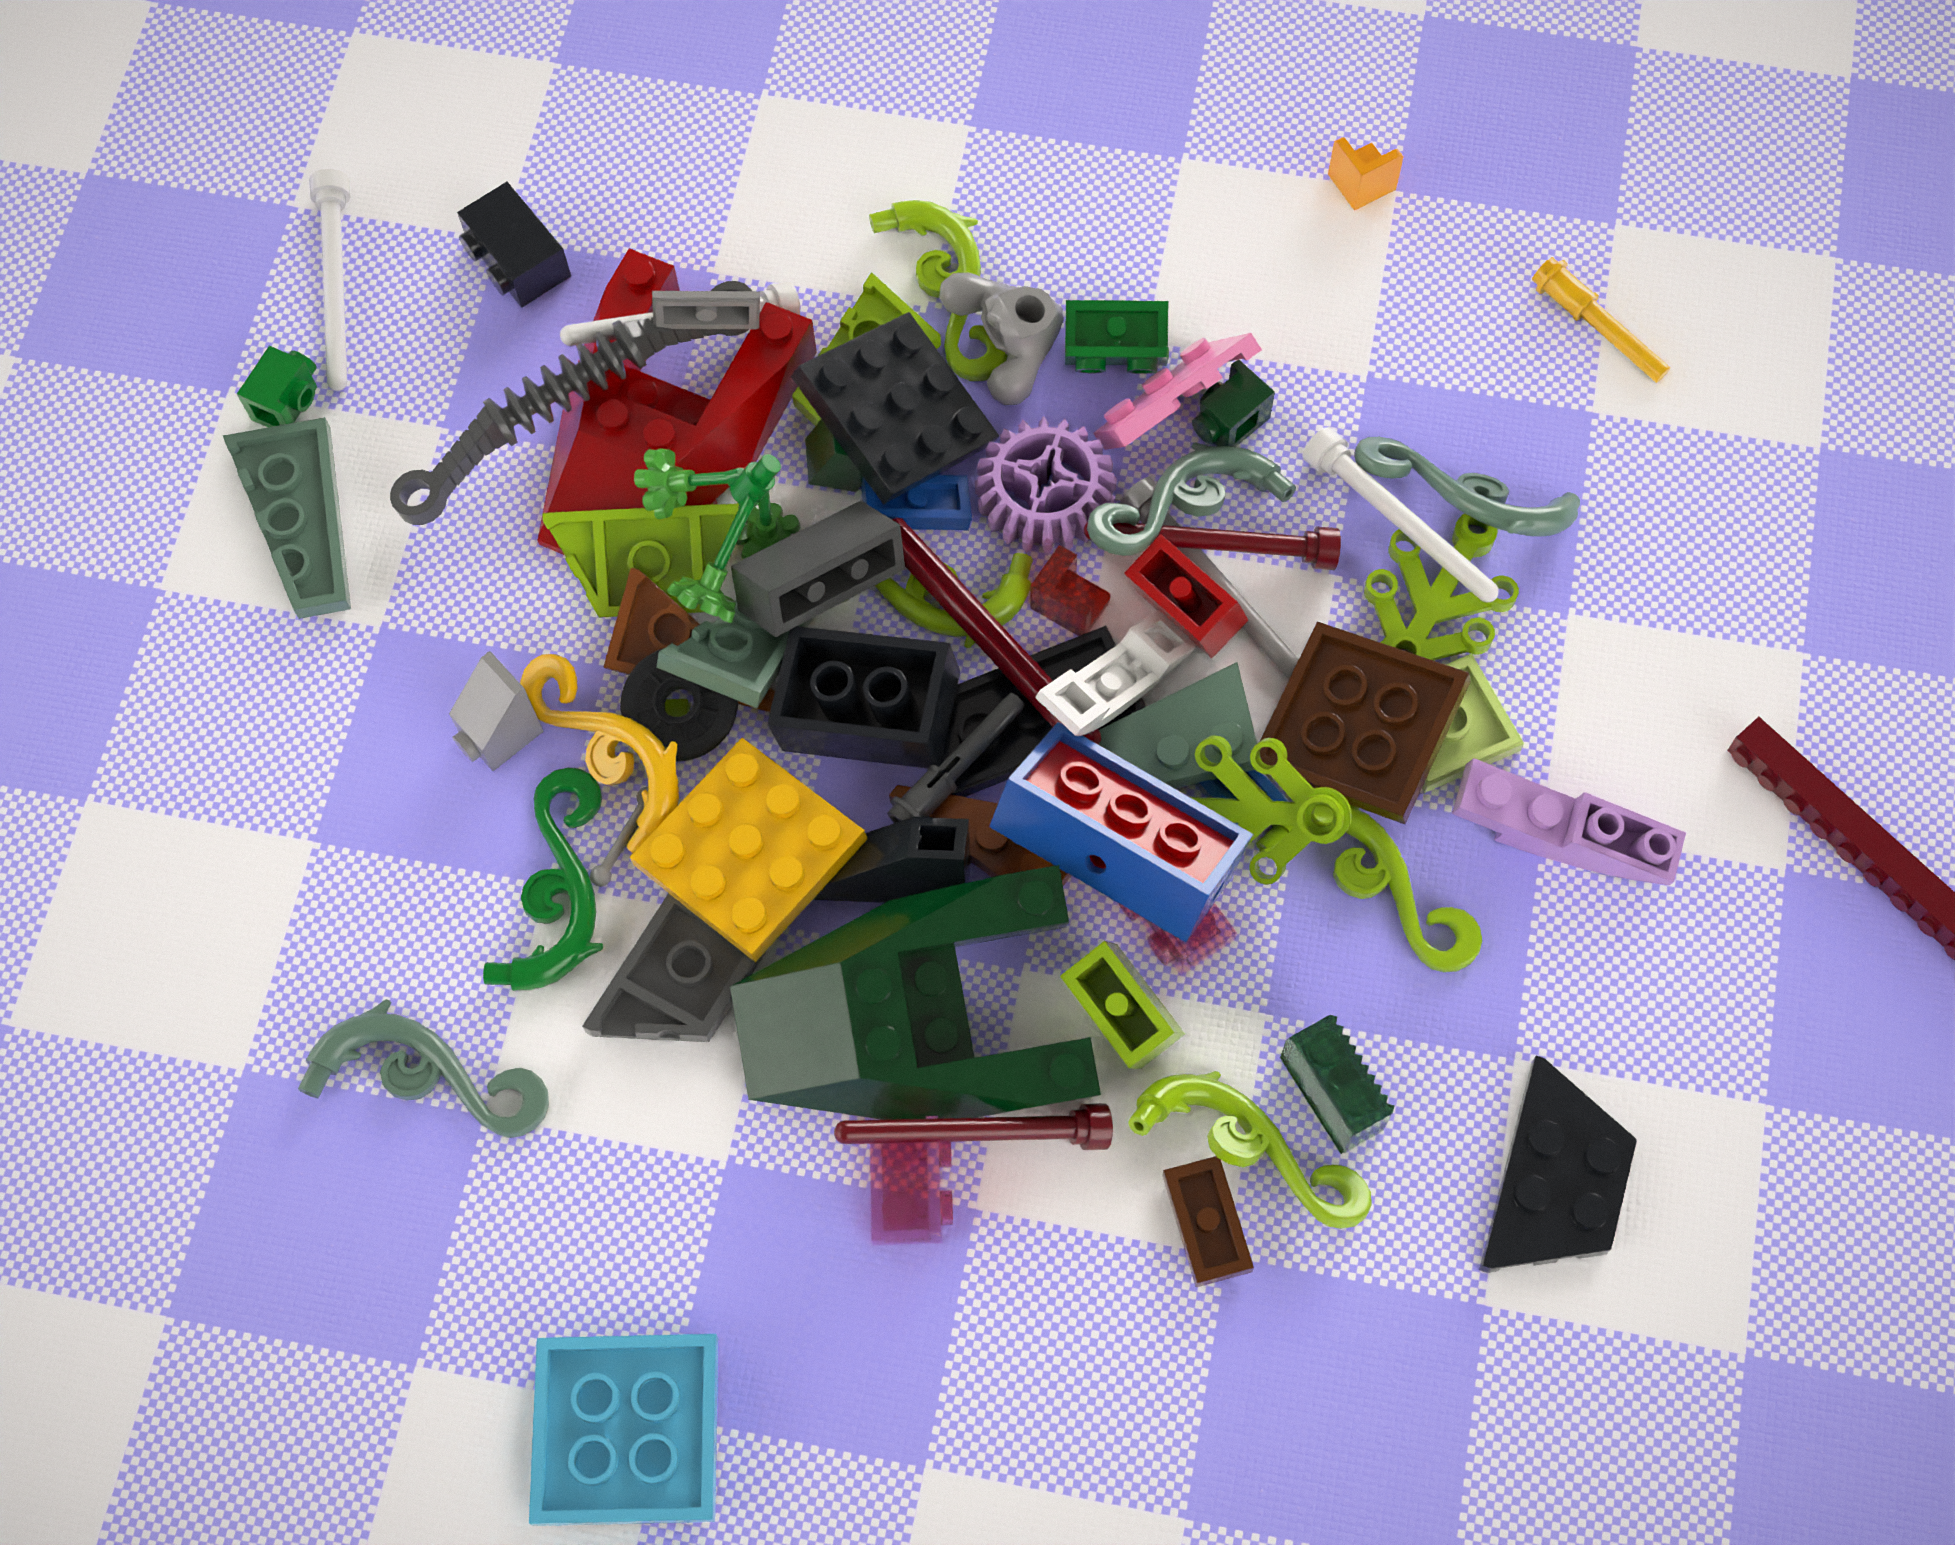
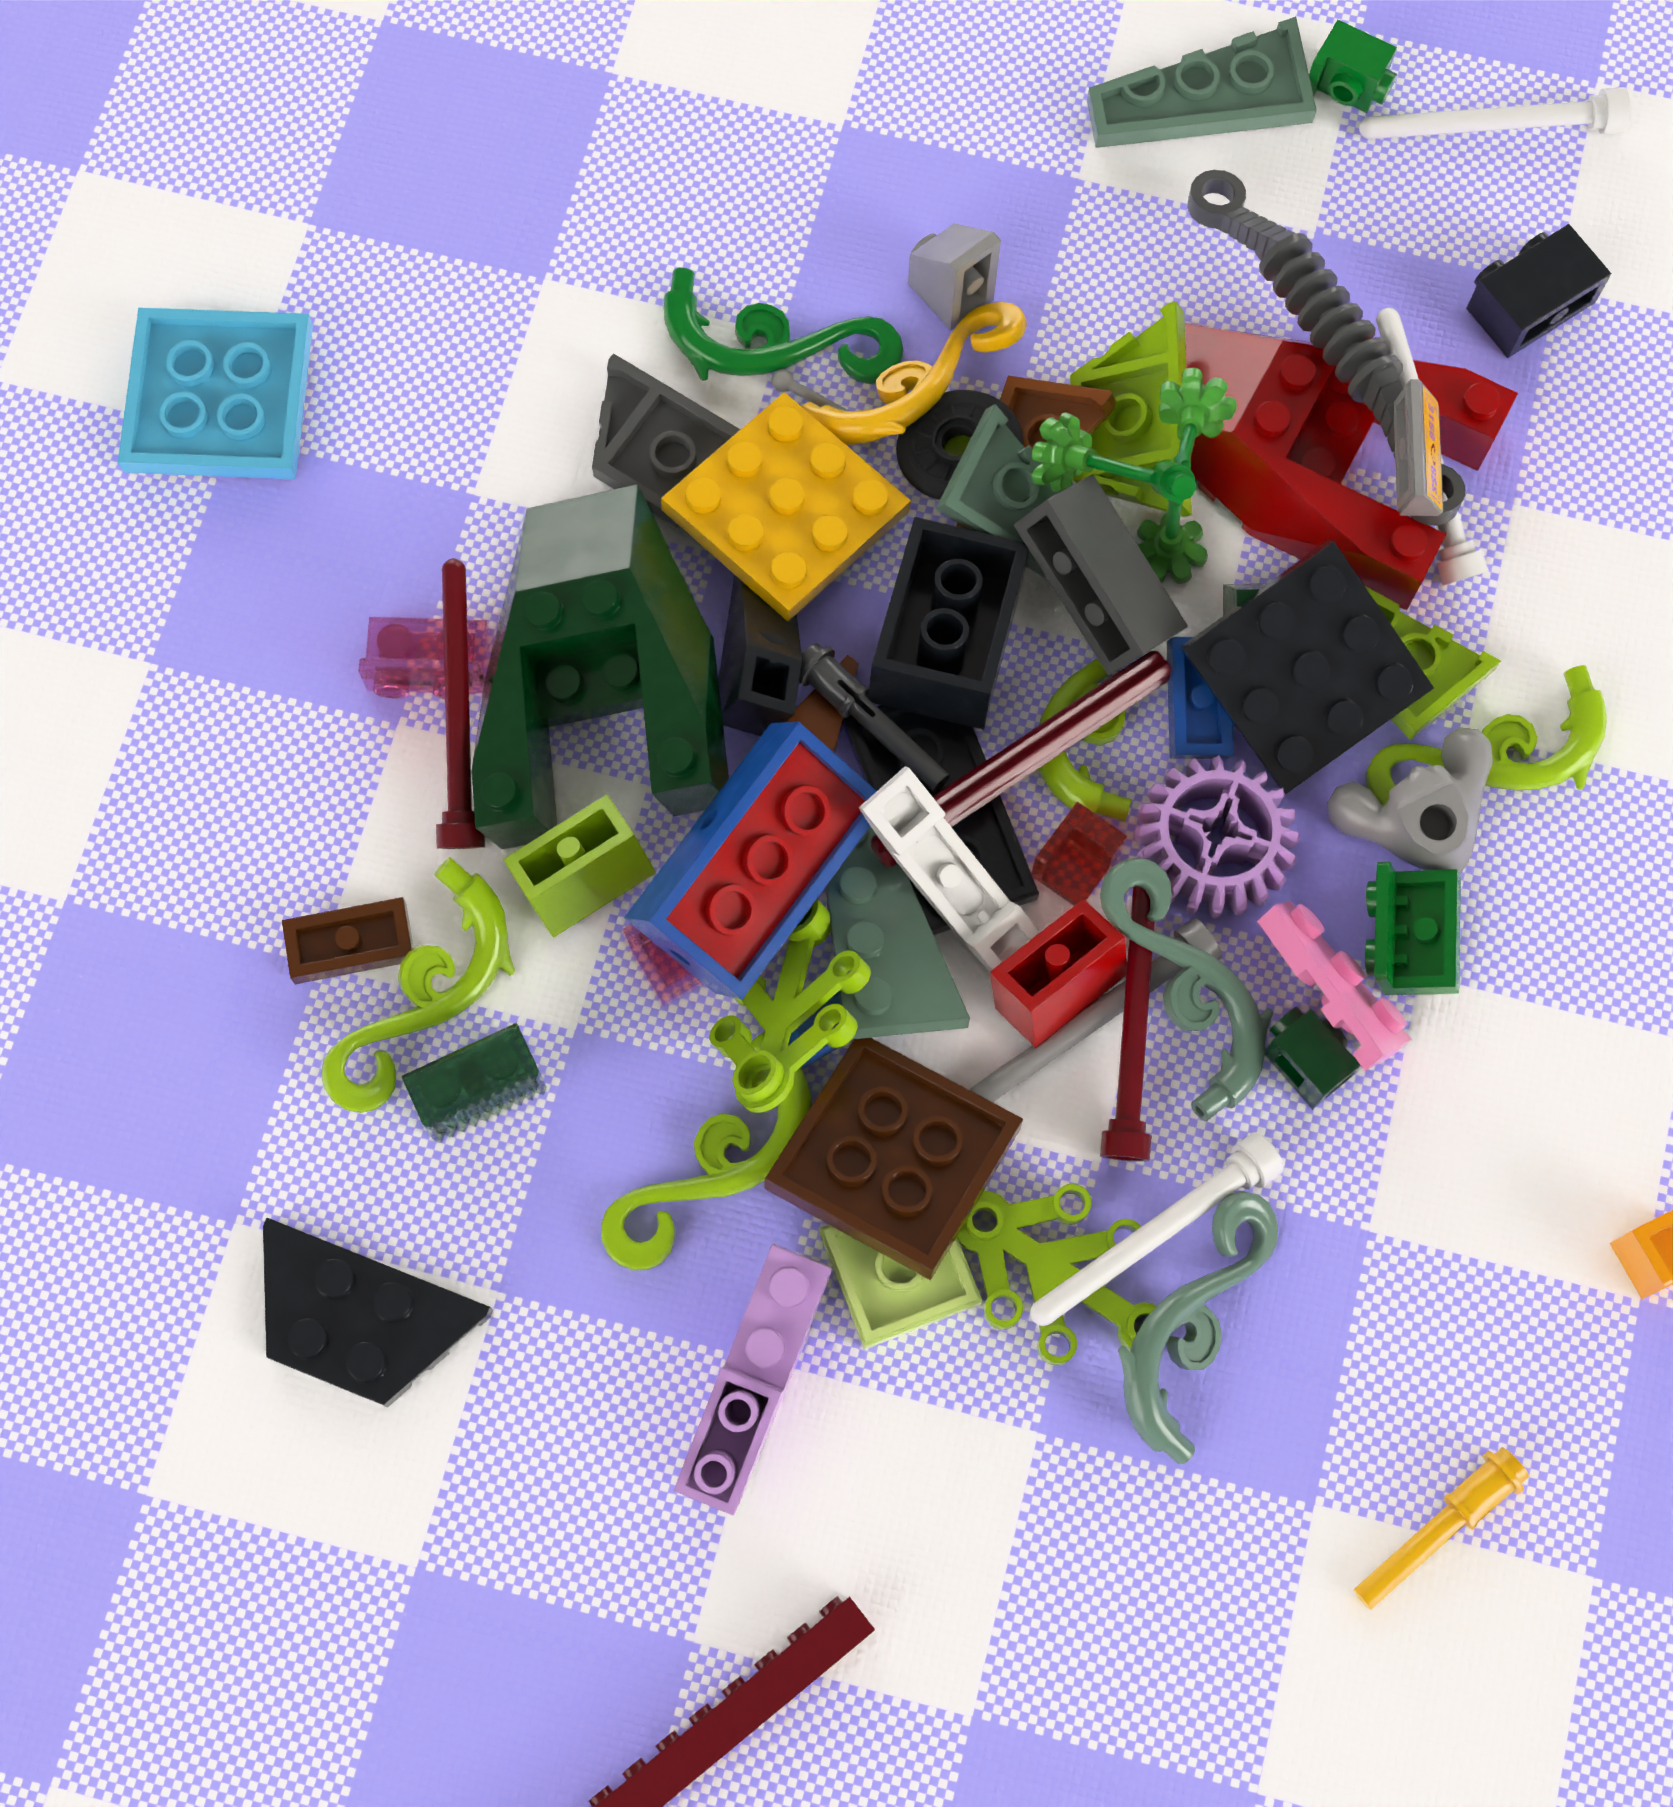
camera: 90 degrees right, 5 degrees up
(437, 1059) = (595, 232): sand green plant -> none

